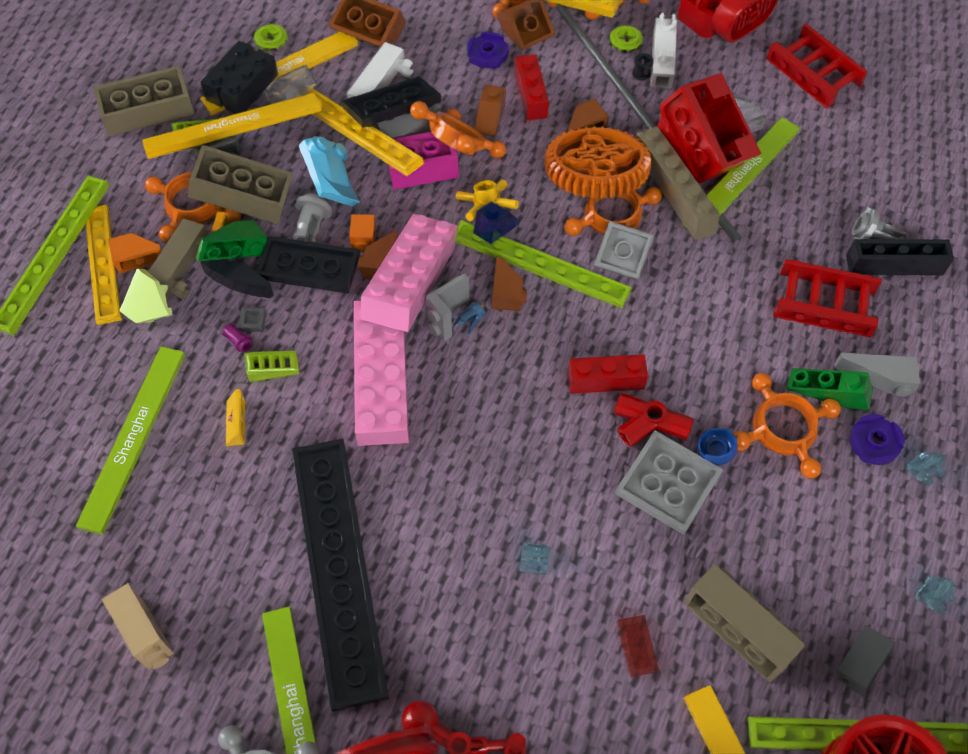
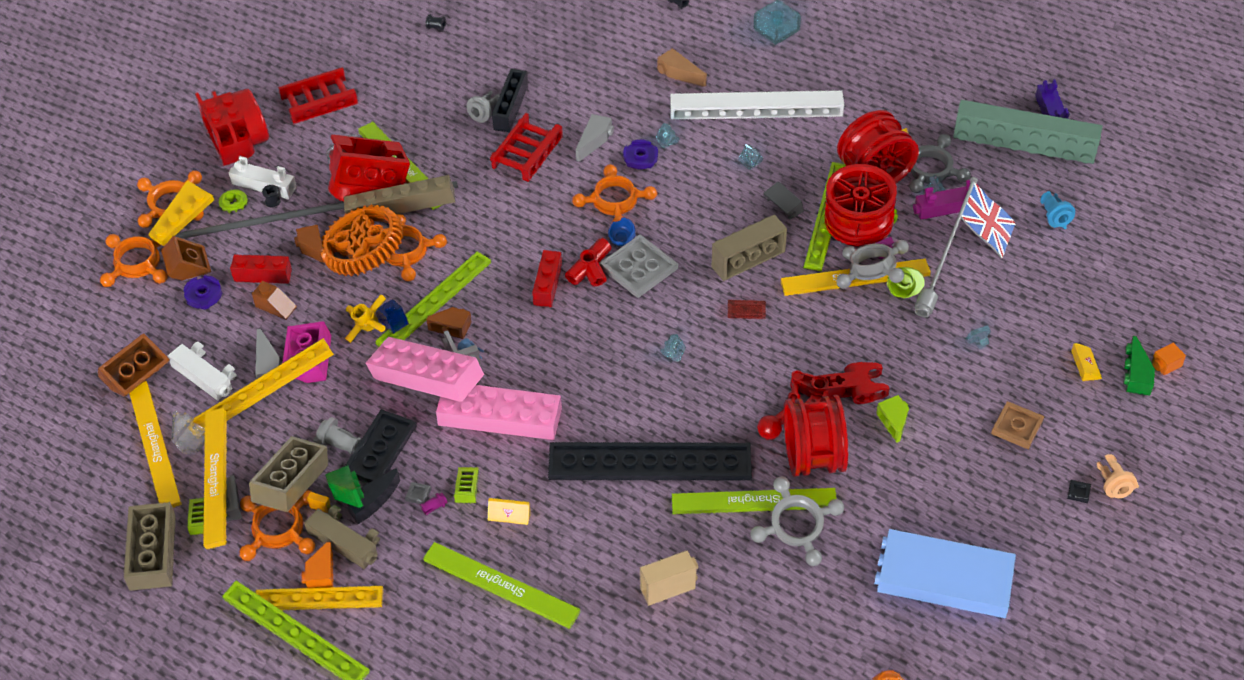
camera: 75 degrees left, 10 degrees down
(145, 299) = (378, 558): yellowish green slope -> none
(239, 78) = (157, 465): black piece -> none
(273, 30) = (100, 445): lime gear -> none
(327, 169) = (283, 414): medium azure slope -> none
(362, 231) = (364, 404): orange brick -> none
(375, 254) = (395, 396): dark orange slope -> none
(390, 101) = (244, 356): black plate -> none
(456, 133) = (298, 319): orange piece -> none
(624, 250) = (445, 246): light grey tile -> none
(849, 388) = (592, 169): green slope -> none

